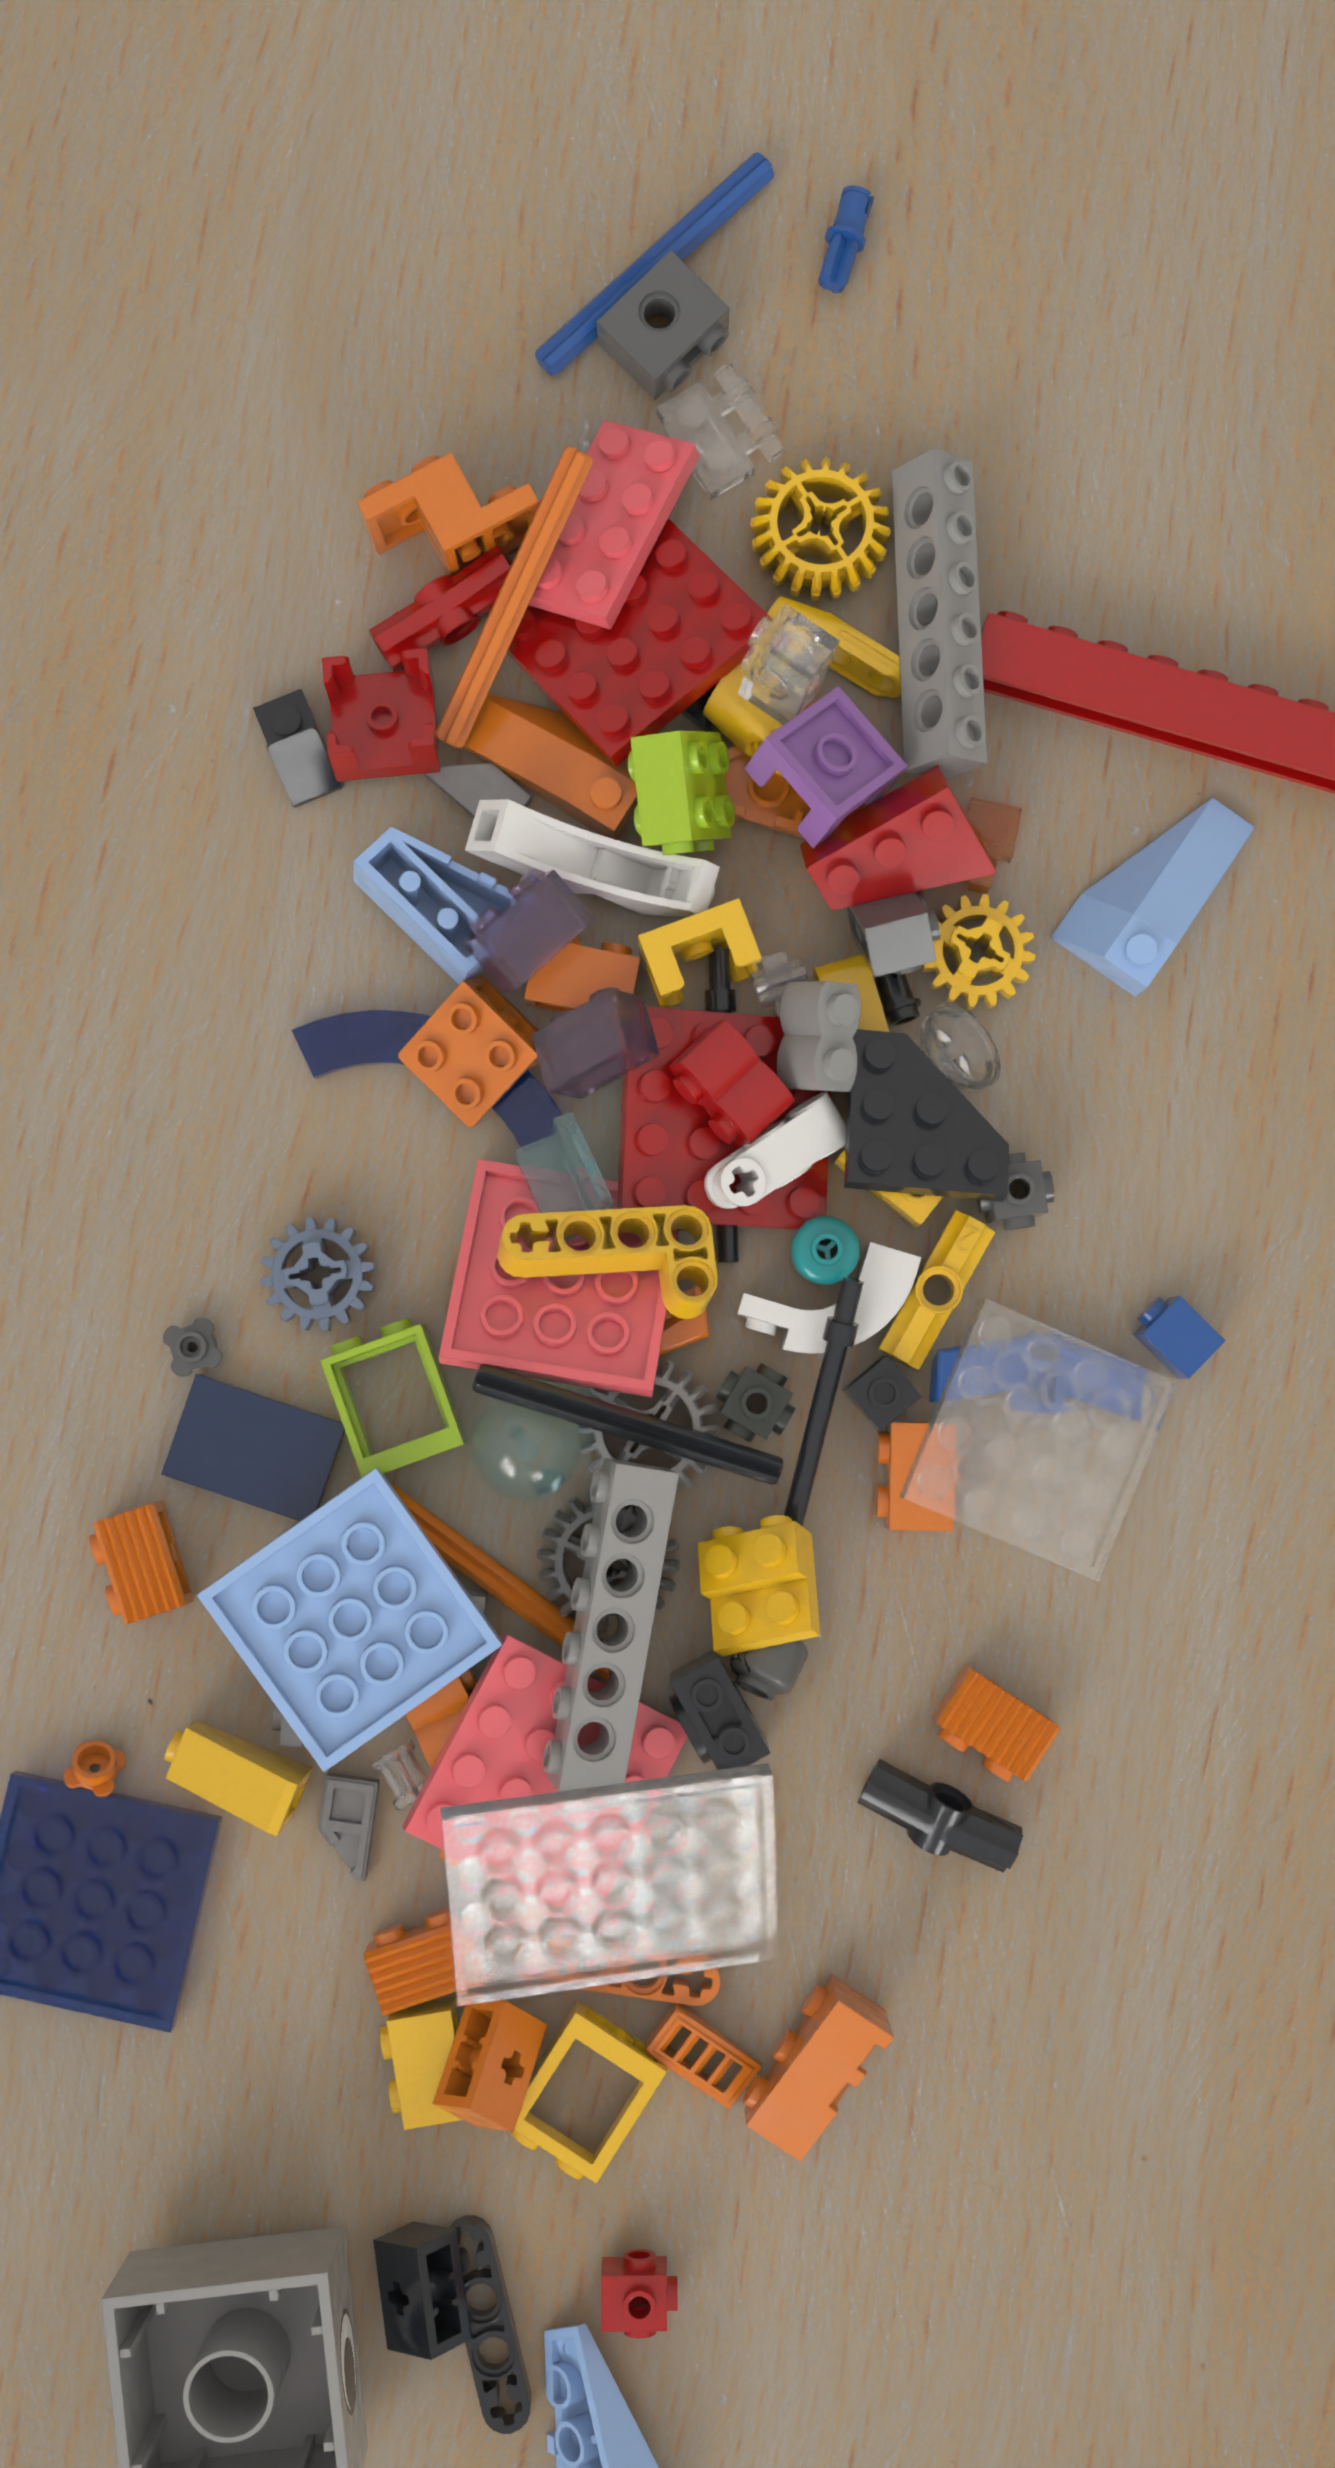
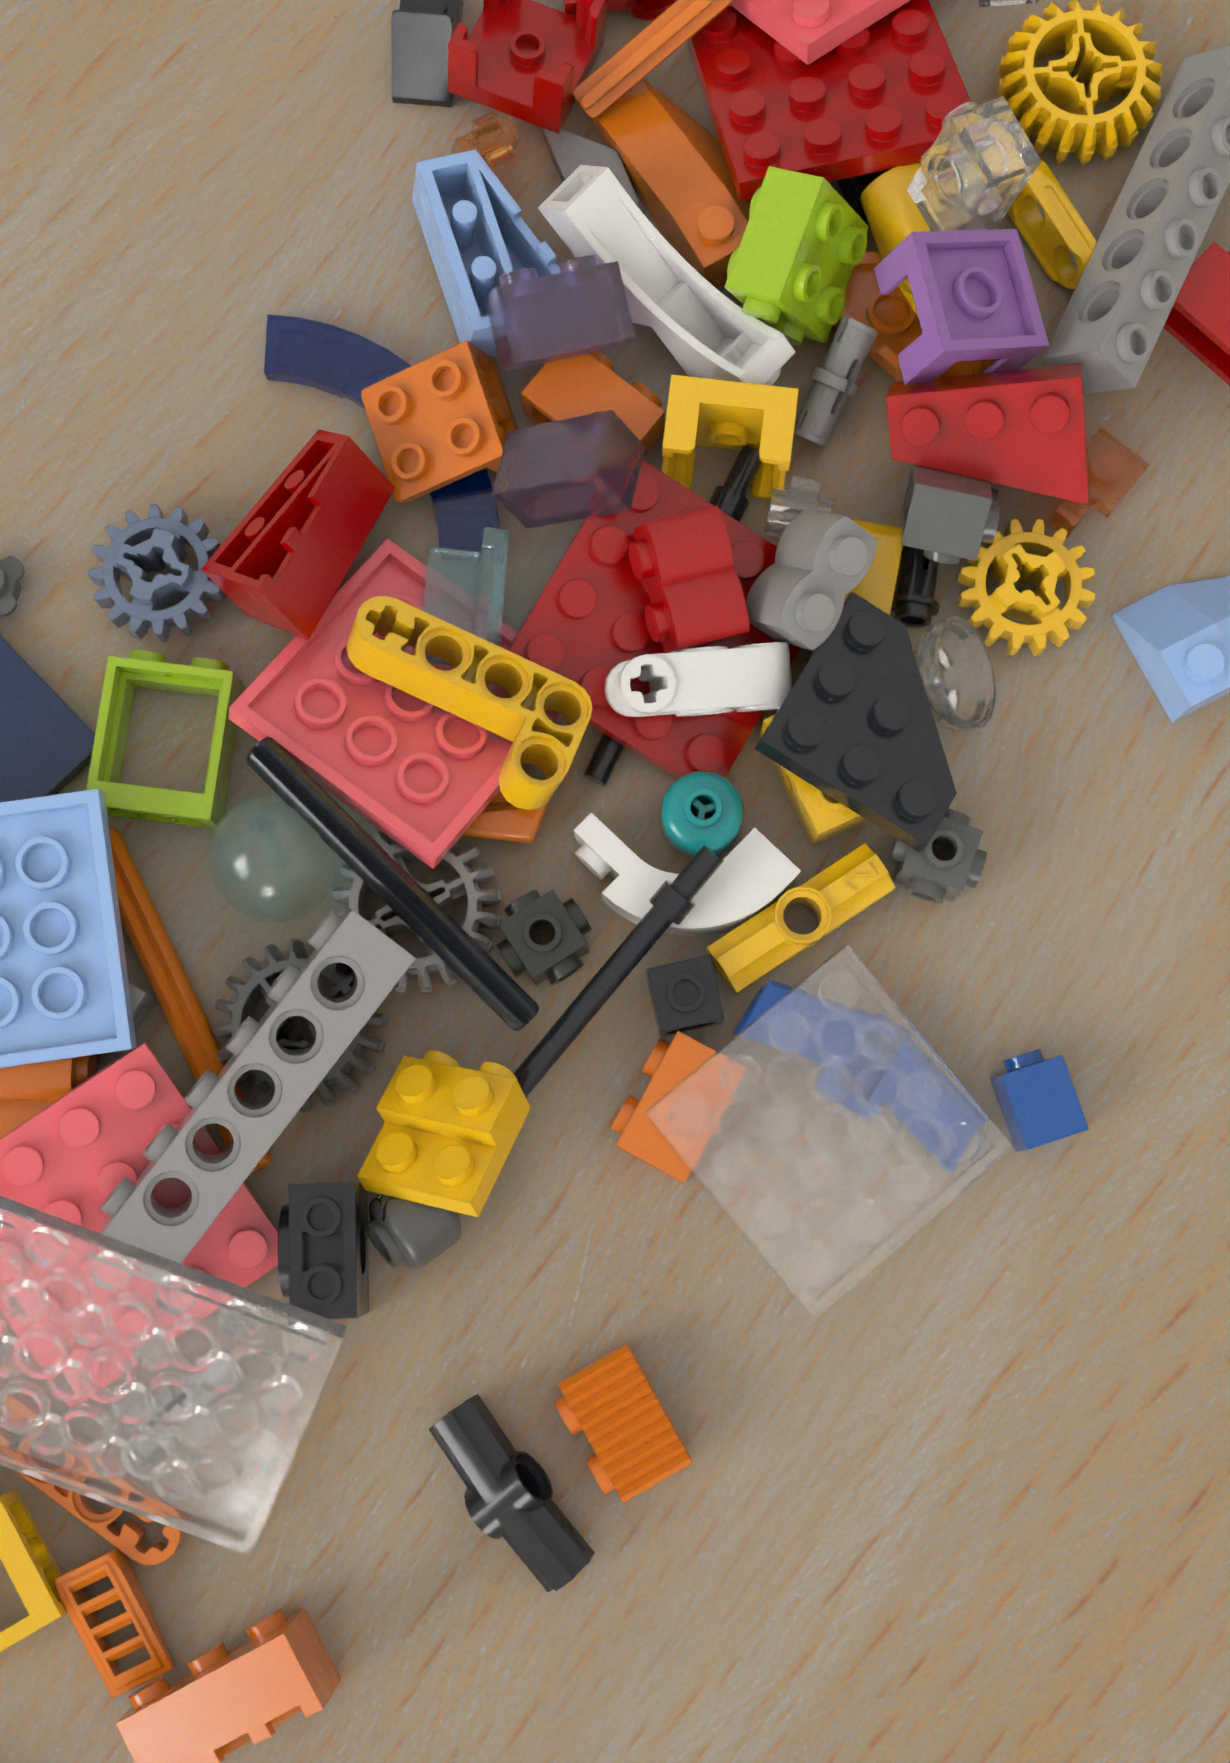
camera: 30 degrees right, 5 degrees down
(393, 812) = (491, 138): none -> clear orange plate
(417, 1193) = (302, 535): none -> red wedge
(754, 864) = (834, 381): none -> light grey pin

